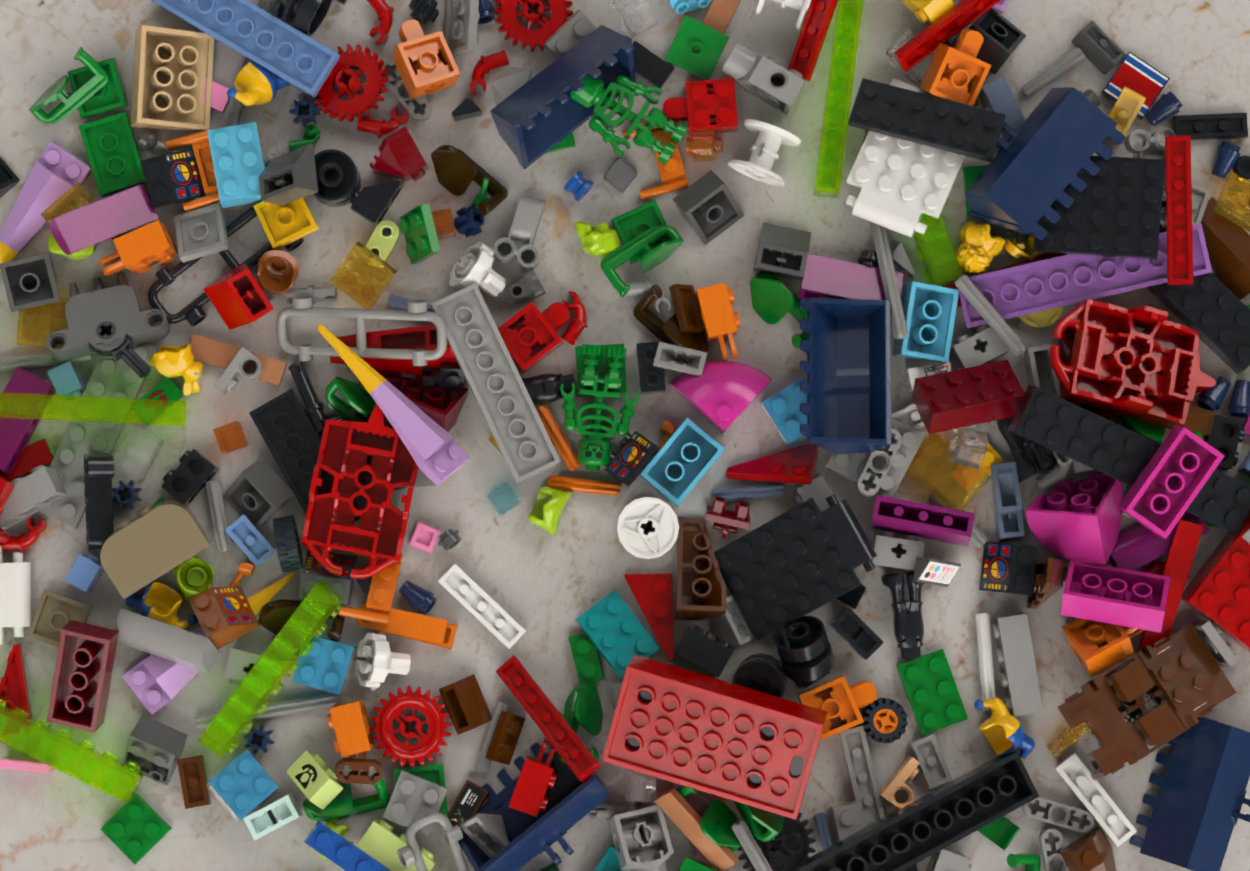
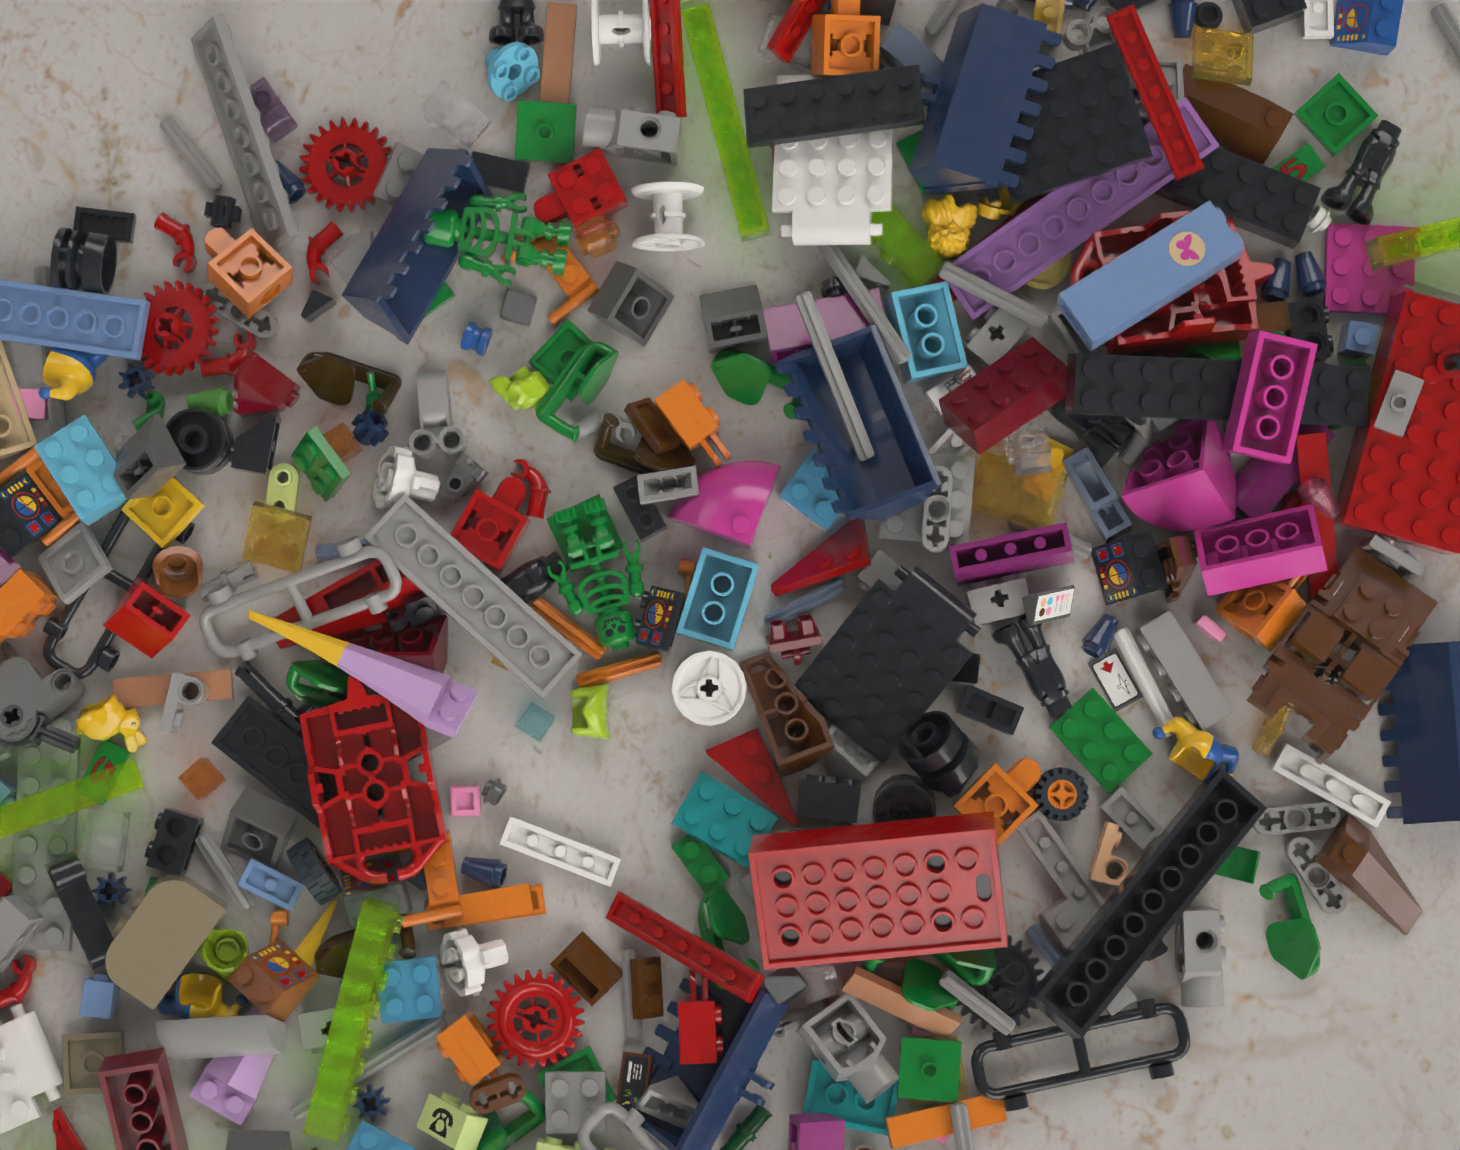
camera: 15 degrees left, 0 degrees up
(359, 152) = (216, 401): none -> bright green cone
(613, 779) = (785, 985): none -> slope
(842, 327) = (834, 376): none -> light grey axle
(962, 650) = (1115, 680): none -> white sticker
(964, 612) = (1099, 638): none -> dark blue cone
(1051, 640) = (1209, 628): none -> bright pink tile
(1117, 350) = (1150, 275): none -> medium blue brick
(1178, 570) = (1316, 492): none -> clear pink cone

